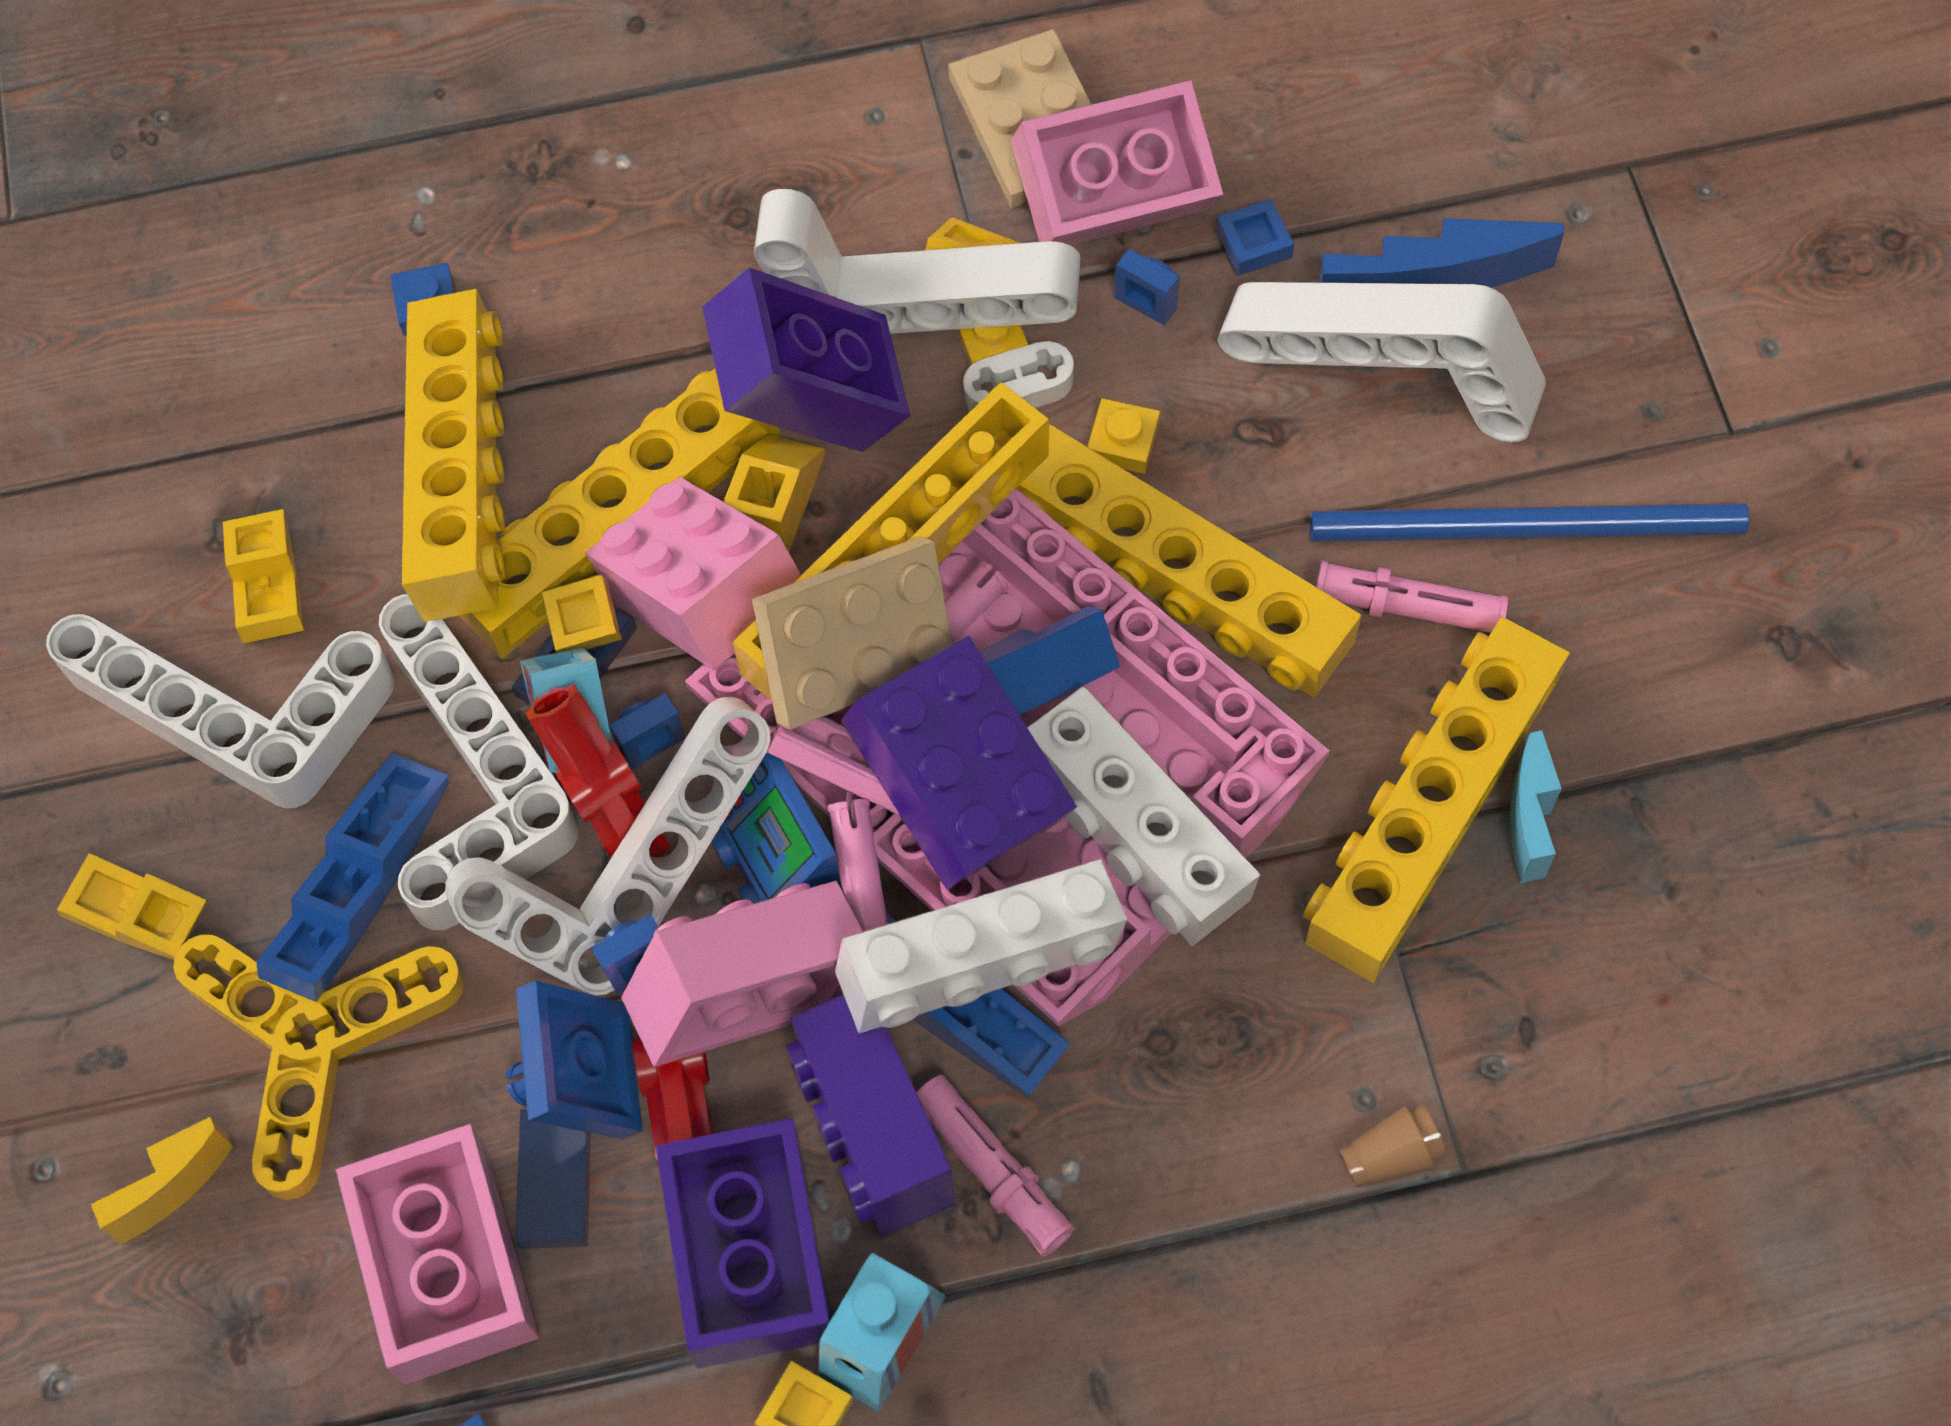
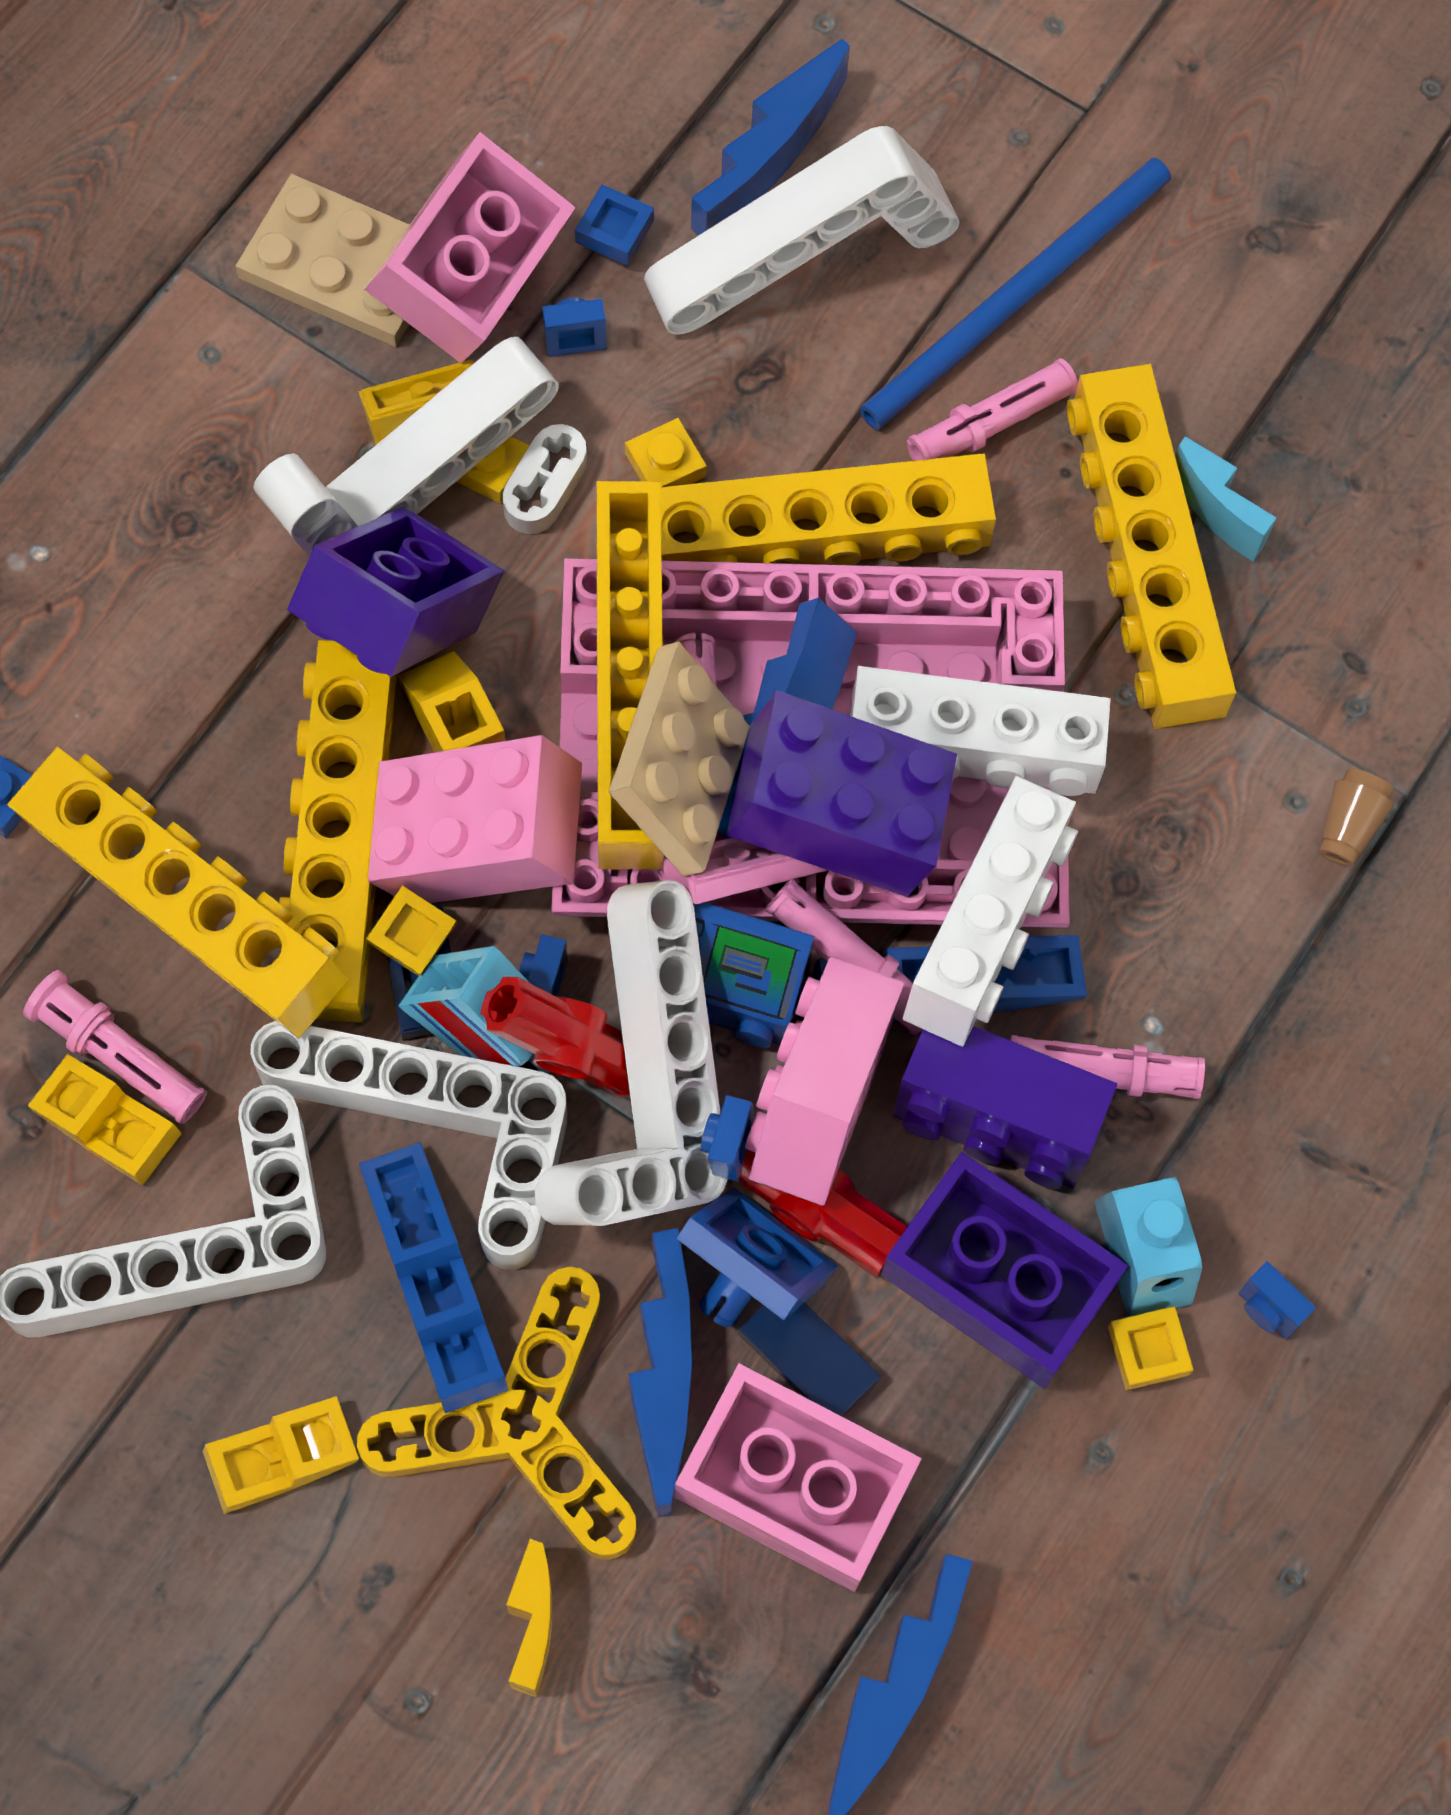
camera: 50 degrees left, 5 degrees up
(314, 508) = (91, 1030): none -> bright pink pin
(425, 1105) = (663, 1392): none -> blue slope

